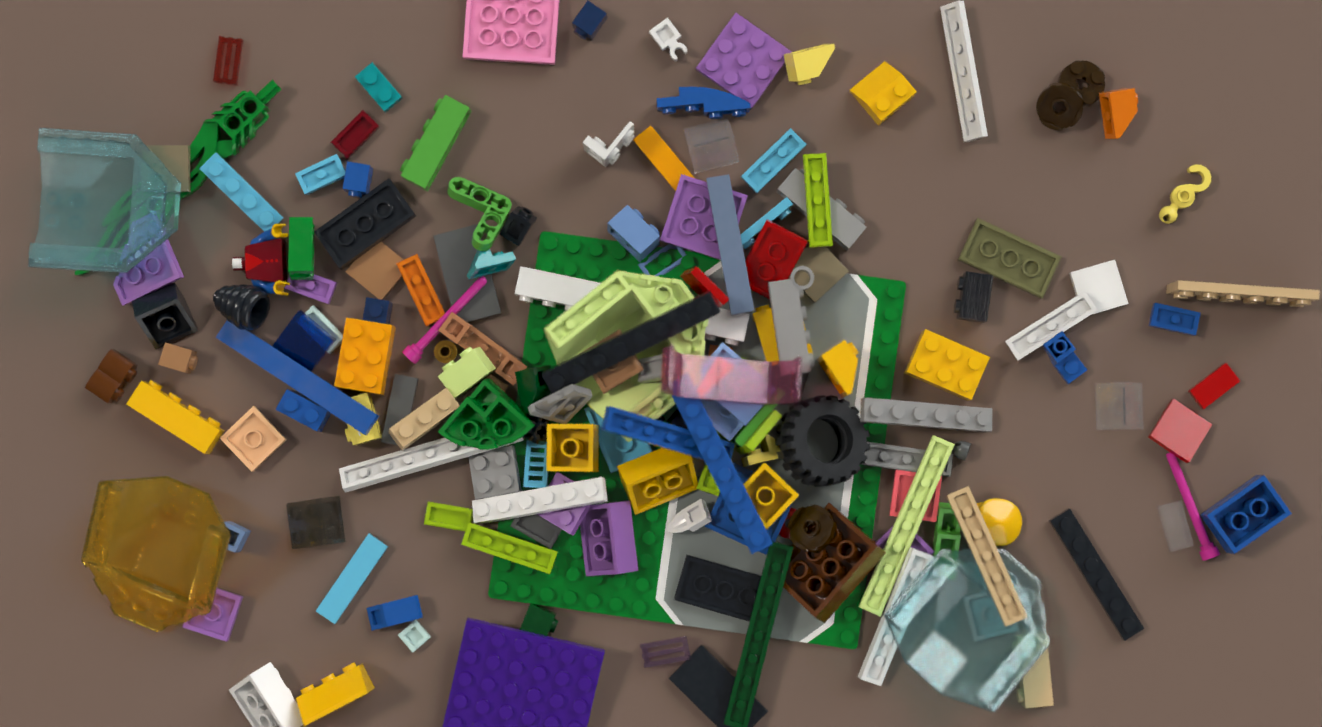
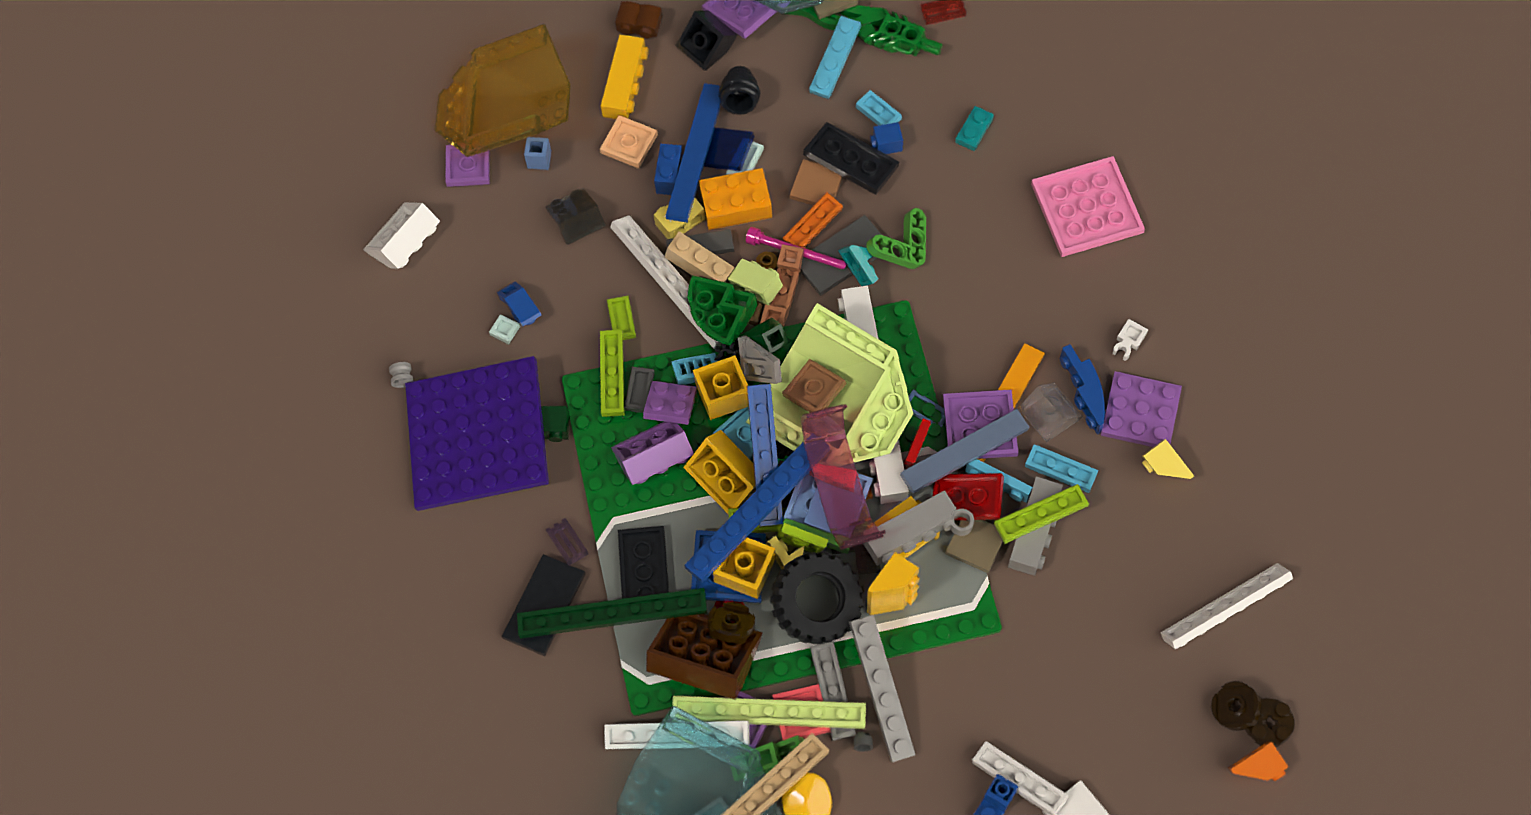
camera: 70 degrees right, 20 degrees down
(178, 358) = (674, 61): medium nougat brick -> none
(266, 261) = (786, 95): torso -> none
(301, 248) = (807, 115): green piece -> none
(318, 289) = (779, 137): medium lavender plate -> none
(333, 692) = (429, 280): yellow slope -> none
(352, 578) = (537, 261): medium azure tile -> none
(355, 134) = (925, 125): dark red tile -> none
(377, 310) = (779, 194): dark blue brick -> none
(435, 143) = (946, 187): bright green brick -> none
(495, 472) = (675, 338): light grey plate -> none
(518, 225) = (904, 277): black bracket -> none
(539, 500) = (664, 379): white plate -> none
(589, 21) = (1113, 268): dark blue brick -> none
(597, 149) = (1011, 326): white bracket -> none
(631, 342) = (839, 392): black plate -> none
(634, 232) = (940, 371): medium blue brick -> none
(690, 518) = (699, 516): white plate -> none
(883, 92) = (1169, 542): yellow slope -> none
(946, 365) = (938, 693): yellow brick -> none
(974, 296) = (1015, 696): black brick -> none
(1009, 258) = (1068, 718): olive tile -> none

